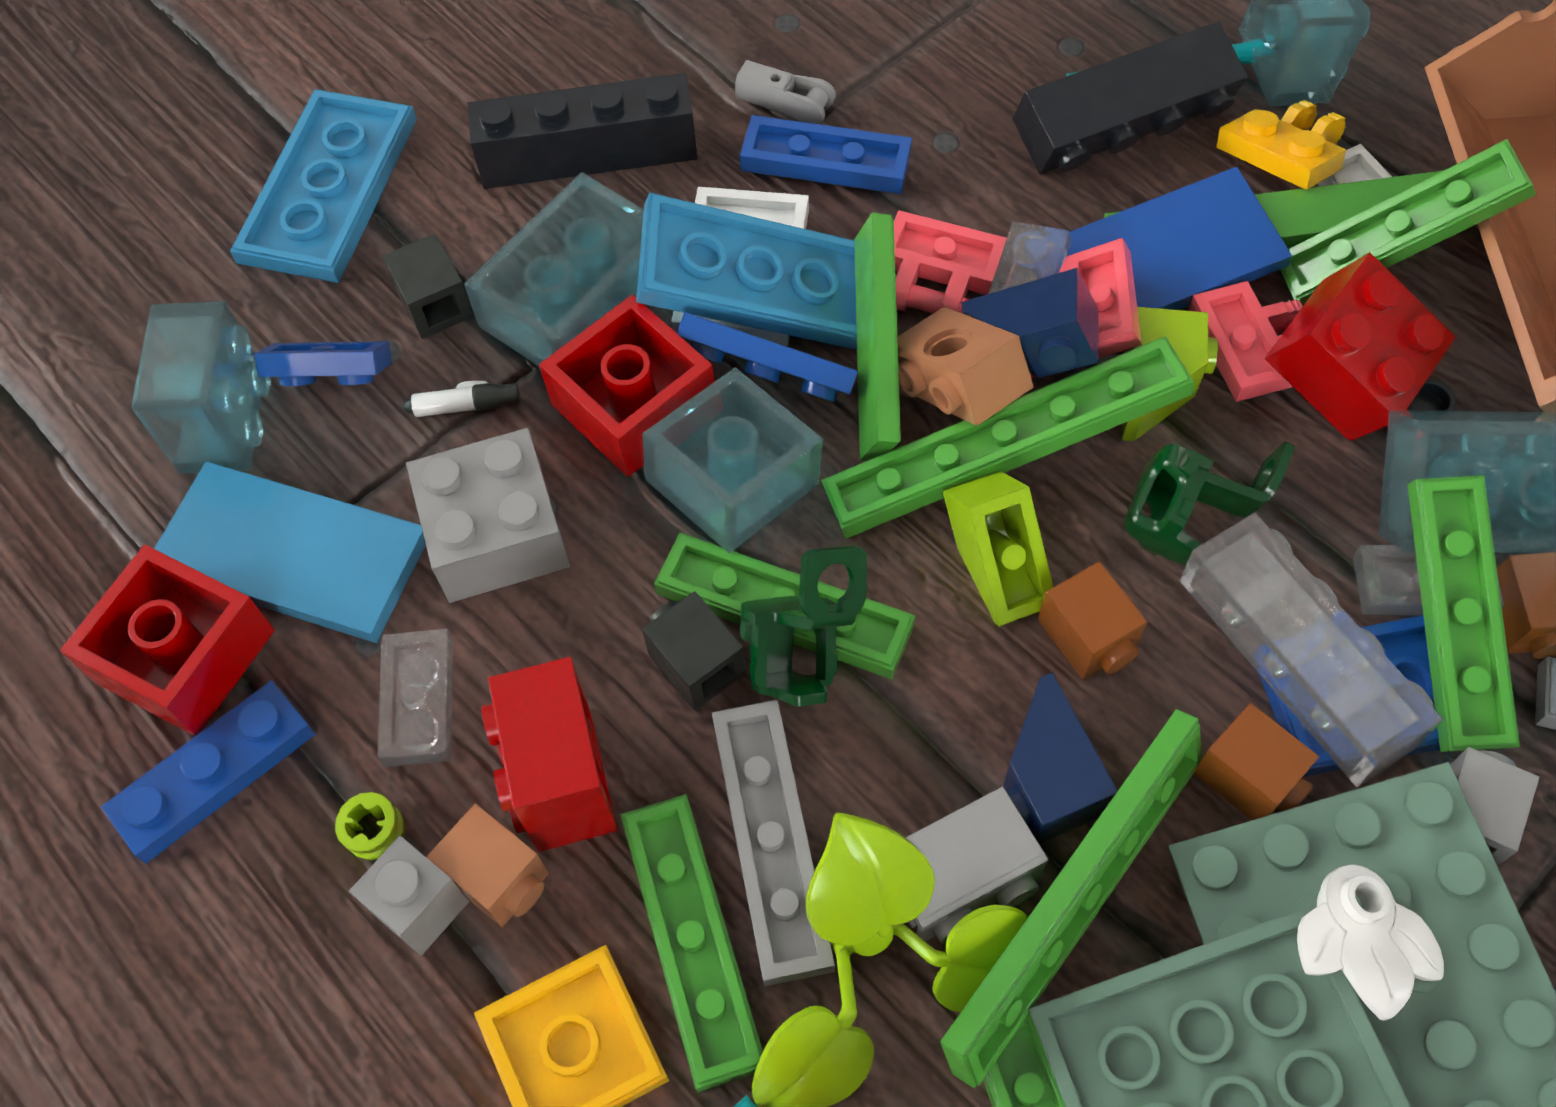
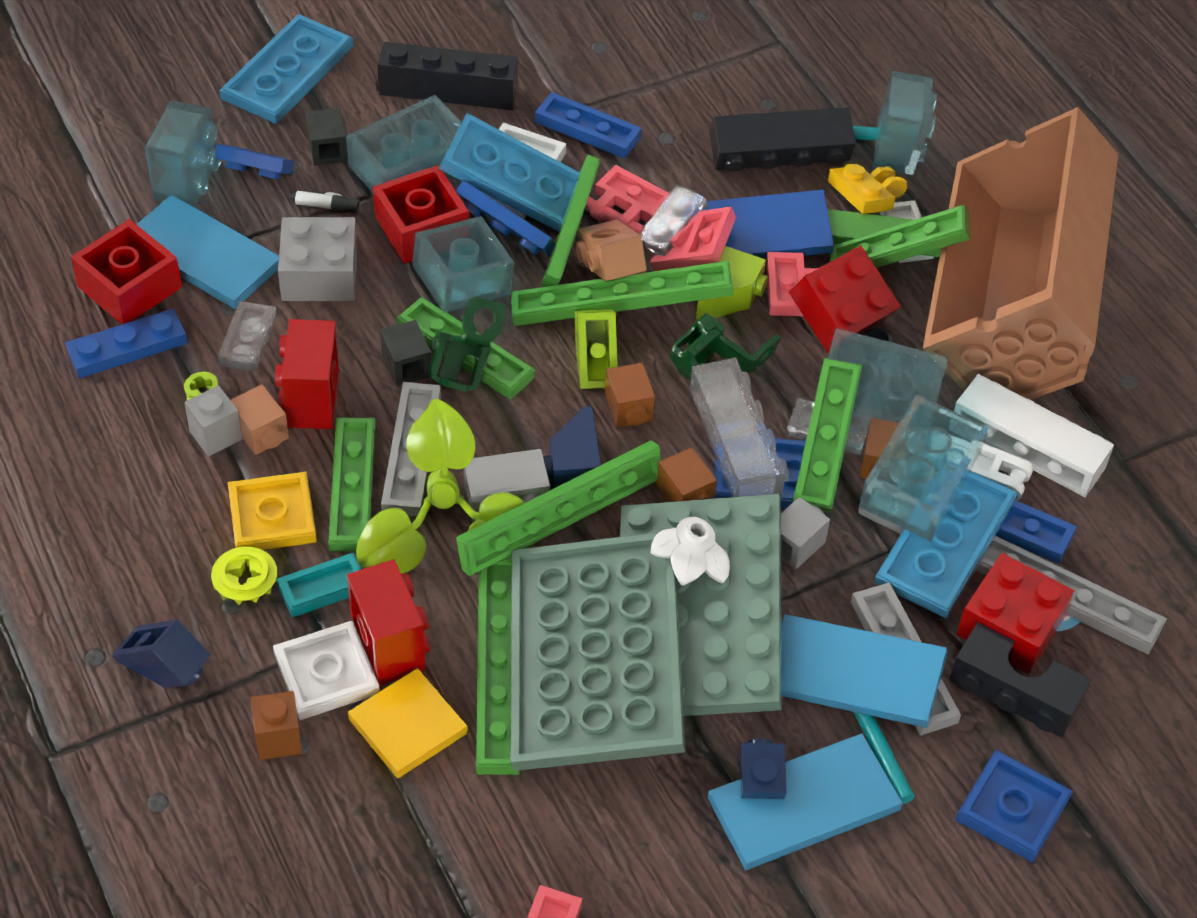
camera: 10 degrees right, 10 degrees down
(783, 92) = (578, 85): light grey bar -> none
(1050, 316) = (666, 237): dark blue slope -> none

